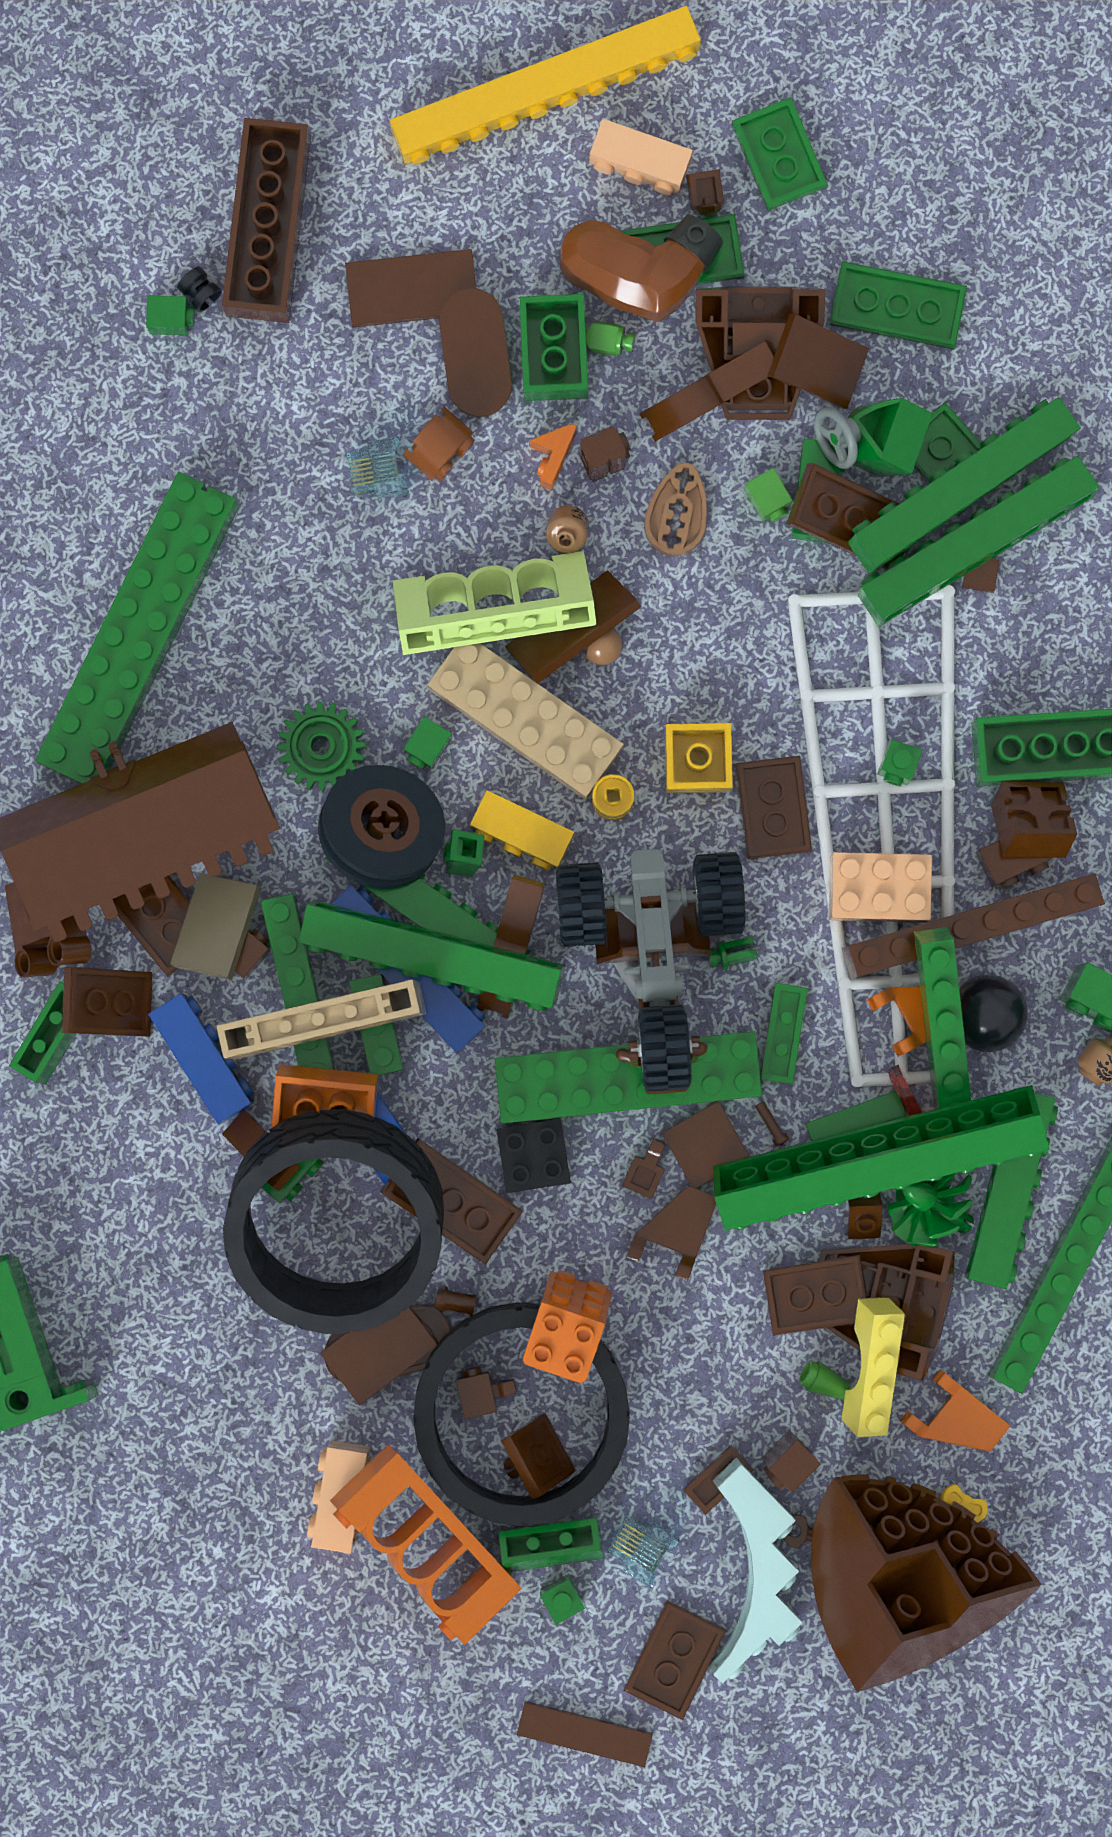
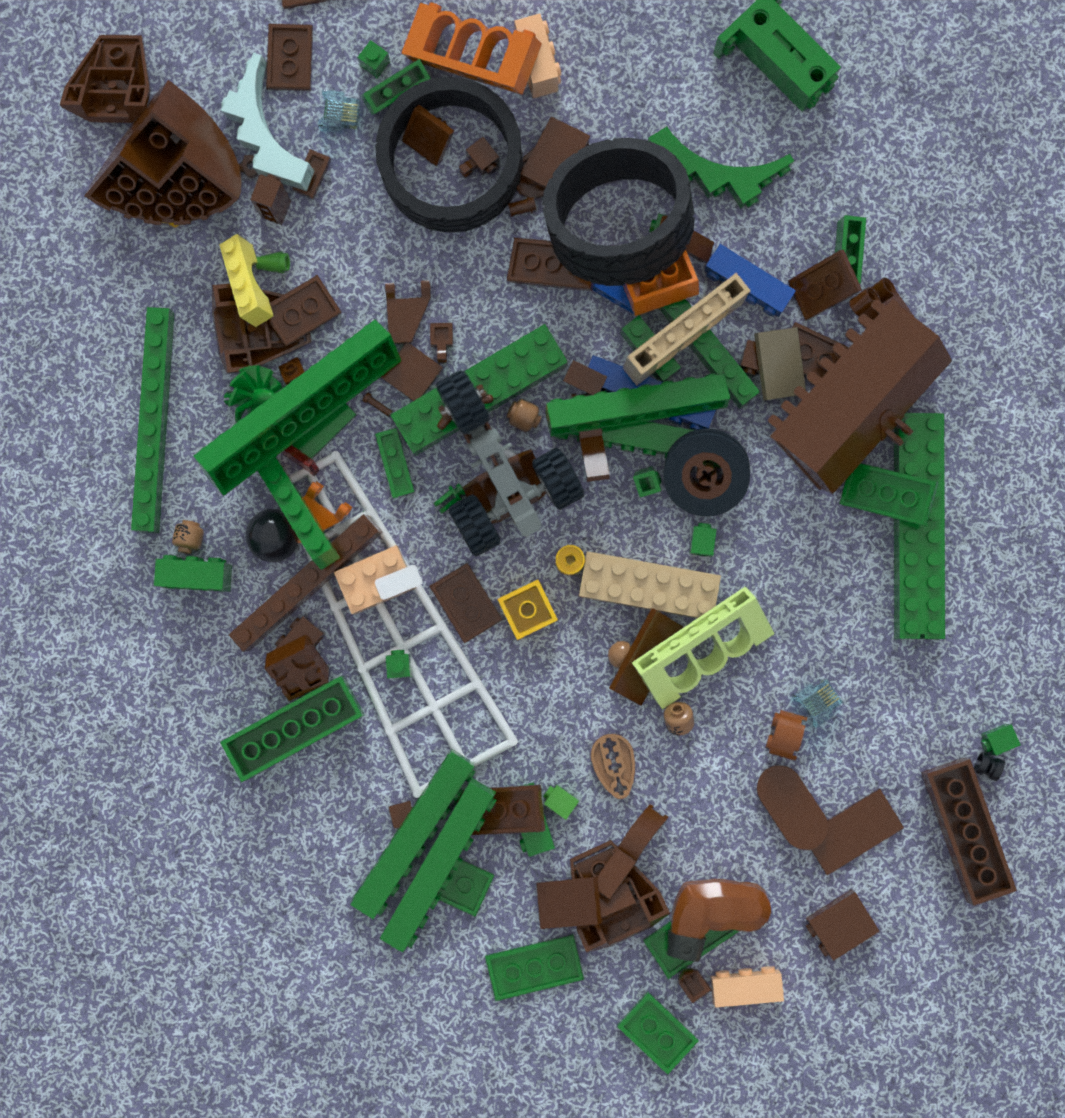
camera: 155 degrees right, 0 degrees up
(157, 687) = (889, 494): none -> green tile
(181, 1219) = (713, 177): none -> green arch
(316, 726) = (782, 504): green gear -> none
(482, 1025) = (584, 378): none -> reddish brown sticker
(484, 179) = (841, 925): none -> reddish brown brick
(521, 831) = (618, 513): yellow brick -> none
(533, 1155) = (515, 315): black brick -> none
(546, 85) = (830, 1007): yellow brick -> none
(553, 347) = (744, 833): green brick -> none
(556, 445) = (710, 771): orange slope -> none
(568, 1326) = (445, 218): orange bracket -> none
(584, 1017) = (523, 415): none -> medium nougat head
(604, 453) = (678, 778): reddish brown brick -> none
(609, 338) = (710, 857): bright green arm -> none
(852, 866) = (398, 582): none -> white sticker
(878, 436) = (509, 871): green piece -> none
(934, 1738) = (110, 81): none -> reddish brown wedge
(960, 1420) = (179, 277): orange flag -> none
(976, 1506) = (146, 229): yellow piece -> none
(1004, 1212) = (207, 416): green brick -> none

